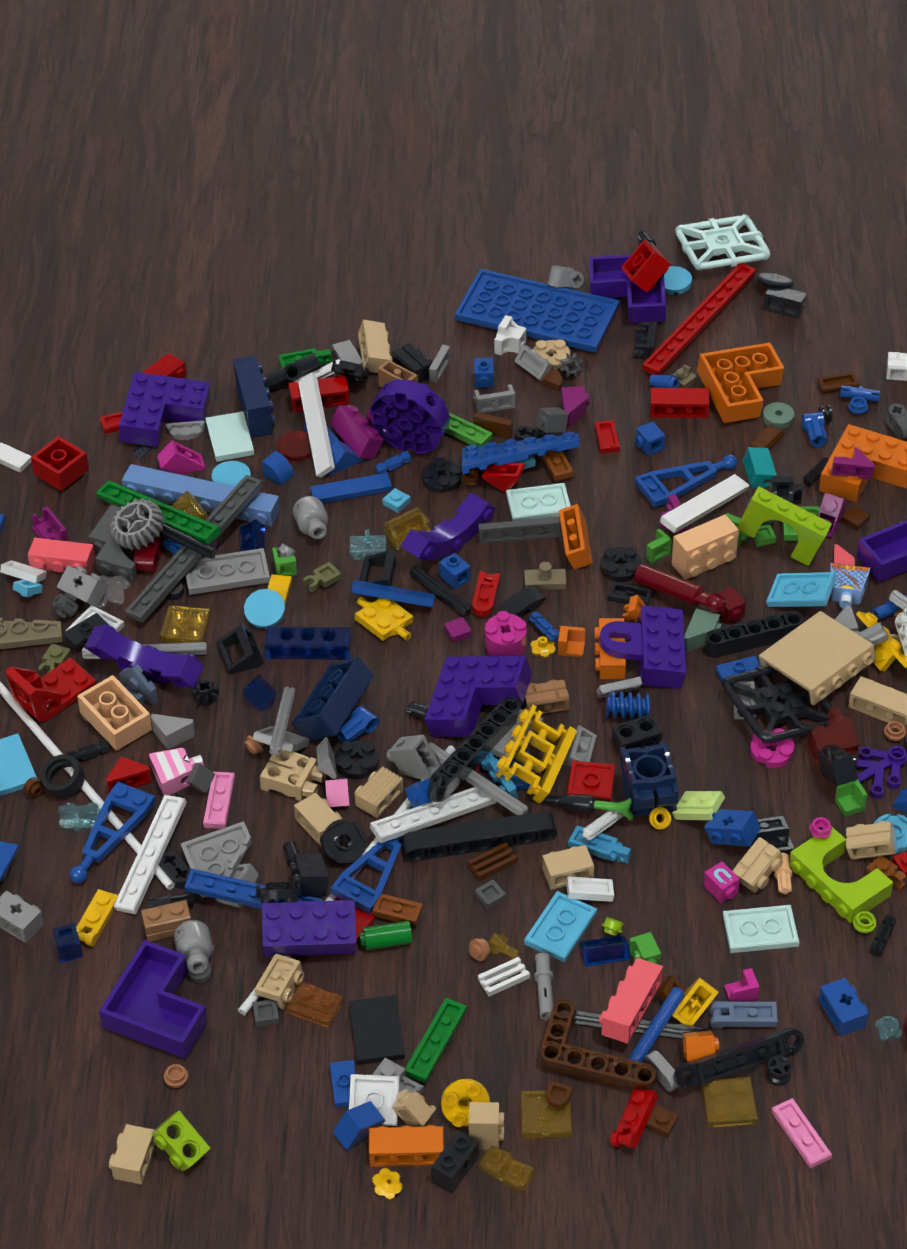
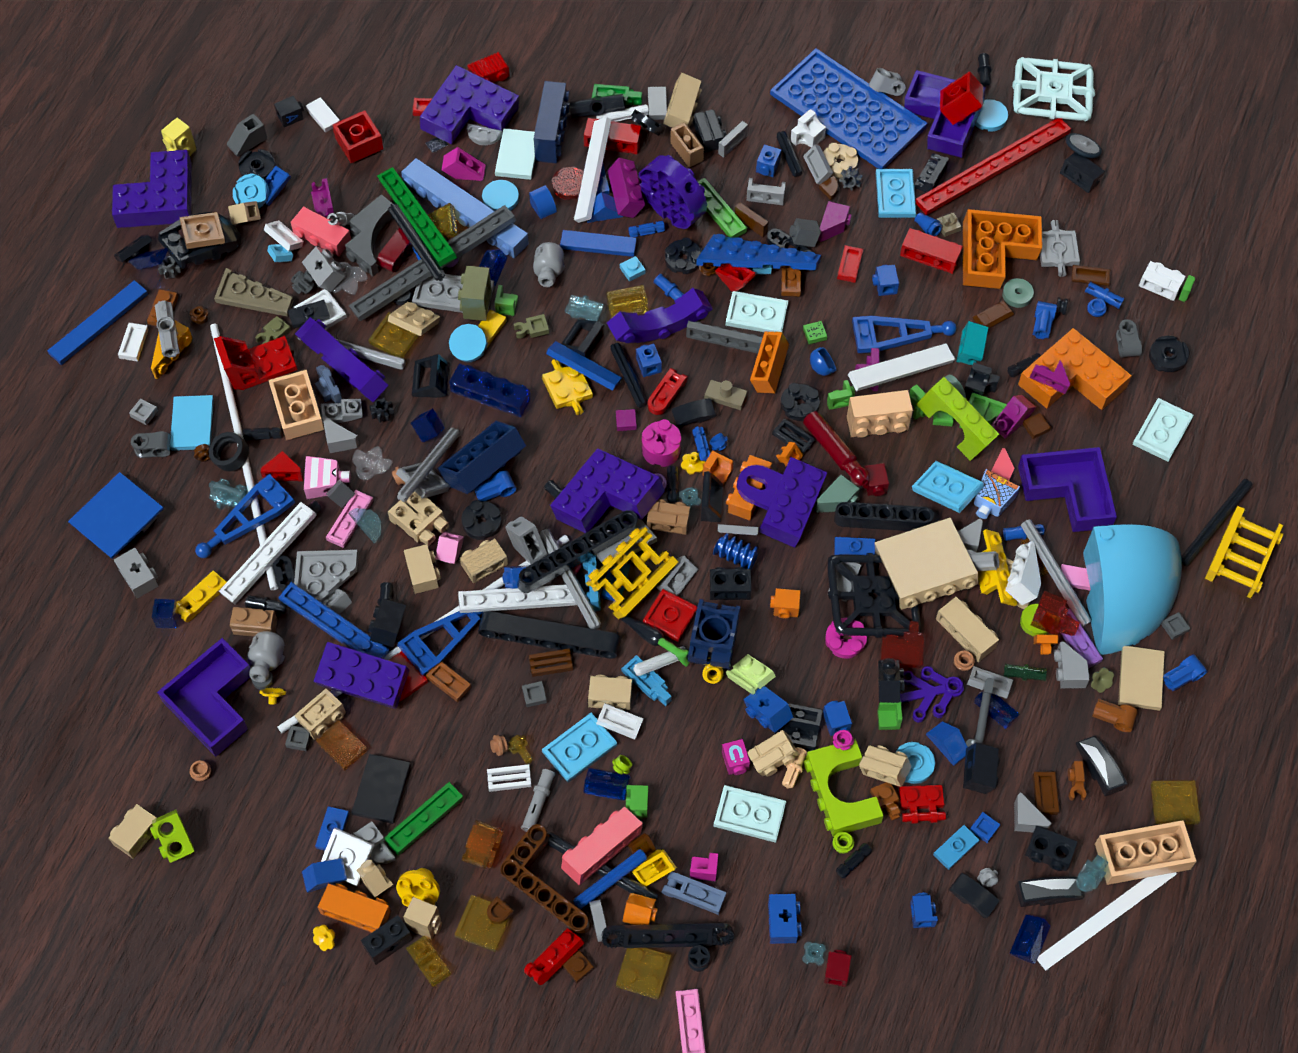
camera: 20 degrees right, 15 degrees up
(79, 536) = (340, 218): none -> light grey pin
(140, 528) = (389, 225): light grey gear -> none
(167, 704) = (342, 412): none -> light grey slope
(198, 603) = (414, 318): none -> tan plate
(216, 744) = (370, 461): none -> clear plate
(219, 981) = (272, 694): none -> yellow plant
(241, 795) = (368, 522): none -> clear light blue plate
(254, 558) = (475, 293): none -> olive brick
(279, 890) = (348, 633): black plate -> none
(285, 551) = (511, 291): light grey plate -> none
(326, 758) = (452, 514): light grey slope -> none
(332, 848) = (421, 592): black plate -> none
(386, 935) = (427, 703): green brick -> none
(441, 505) = (671, 290): none -> blue pin
(500, 362) = (789, 154): none -> black axle
(511, 1040) = (481, 845): none -> clear orange brick
(536, 676) = (672, 483): none -> black axle
(556, 673) = (690, 492): none -> clear light blue plate
(560, 619) = (718, 442): none -> blue plate
(578, 669) = (711, 498): none -> black tile
(604, 502) = (815, 332): none -> bright green tile
(619, 367) = (895, 193): none -> medium azure tile
(624, 523) = (822, 362): none -> blue hair
(699, 735) = (785, 603): none -> orange brick
(799, 368) = (1059, 248): none -> light grey plate
(800, 815) = (836, 717): none -> blue brick

